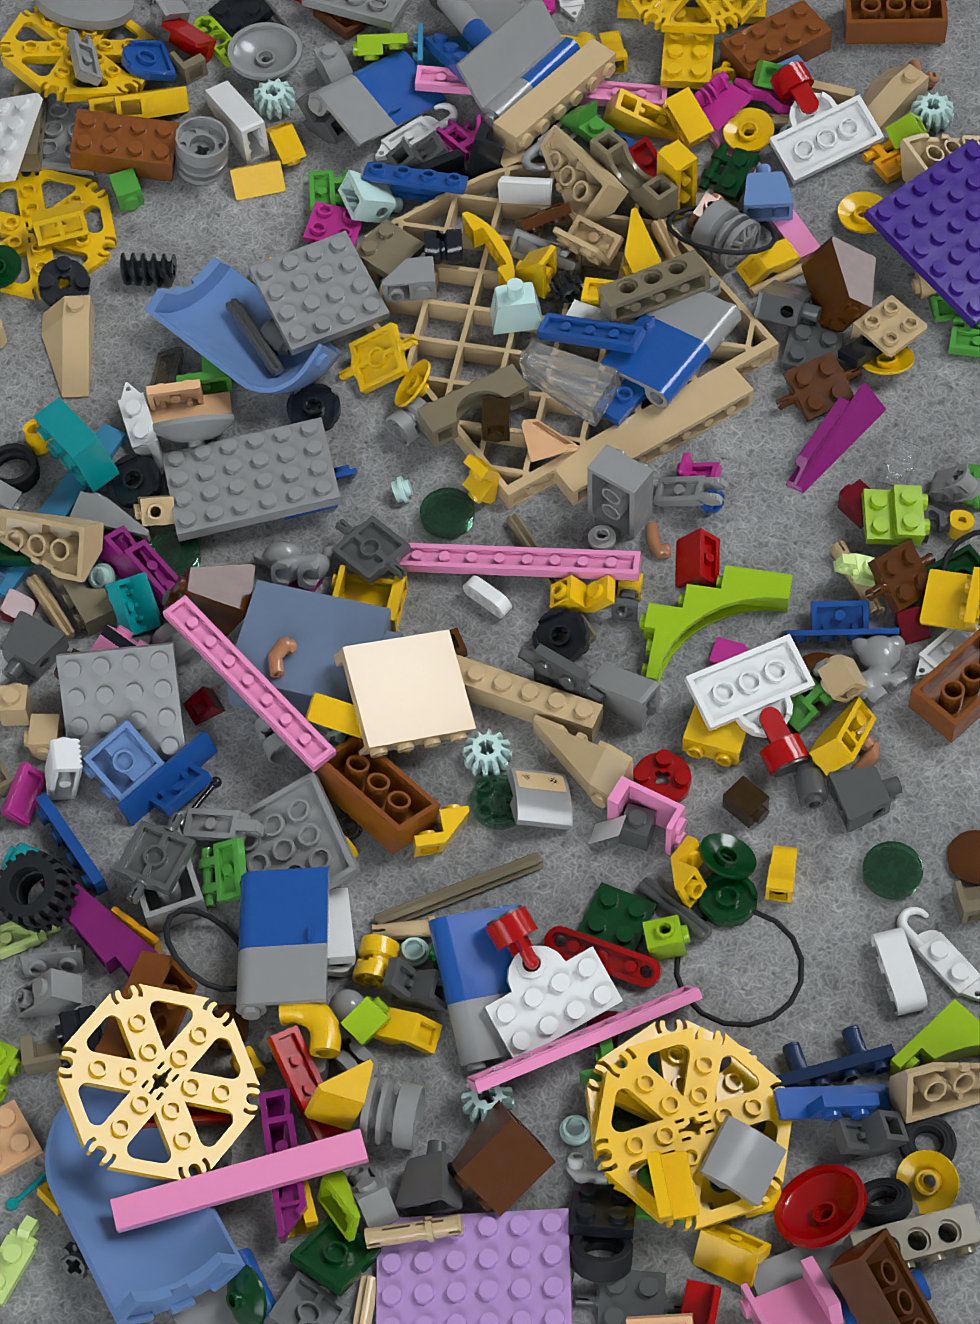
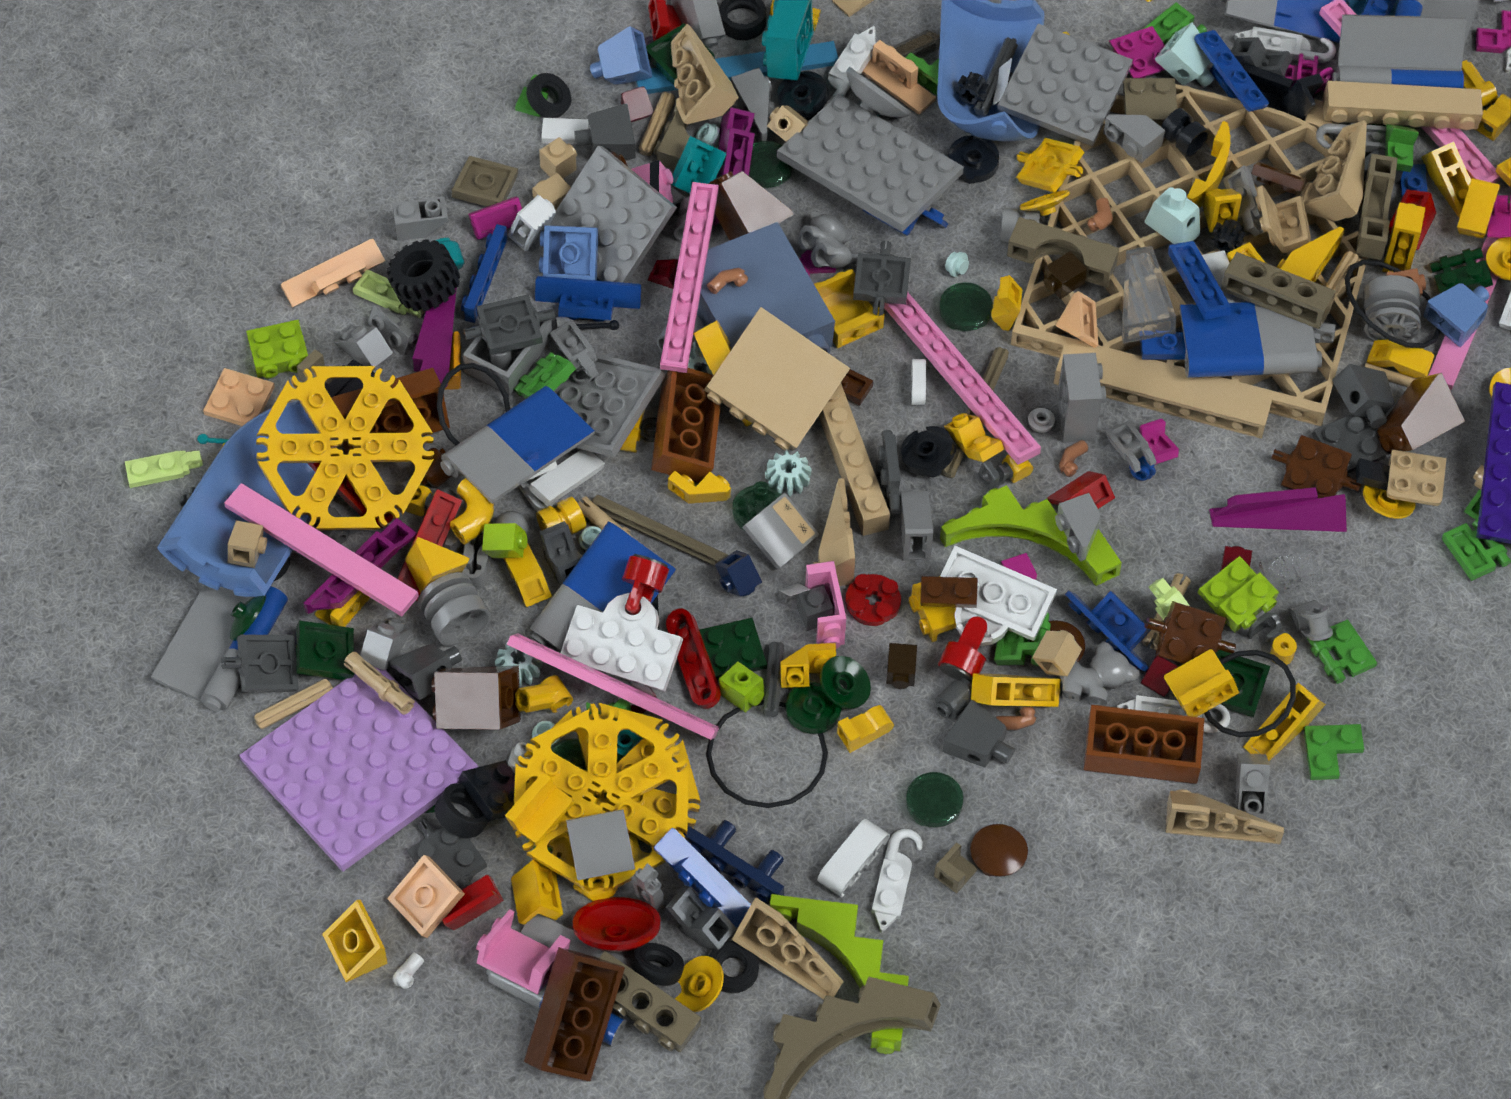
camera: 45 degrees right, 0 degrees up
(175, 1242) = (246, 544): none -> tan brick
(255, 357) = (972, 88): none -> black gear
(270, 332) = (1002, 81): none -> white sticker
(339, 1203) = (366, 618): lime slope -> none
(464, 355) = (1102, 217): none -> nougat arm
(525, 190) = (1294, 148): white panel -> none
(540, 1103) = (548, 694): none -> yellow piece
(554, 860) = (738, 574): none -> dark blue brick
(723, 712) = (949, 592): none -> reddish brown plate
(739, 575) = (1080, 523): none -> light grey slope
(811, 1152) = (648, 887): none -> light grey hinge

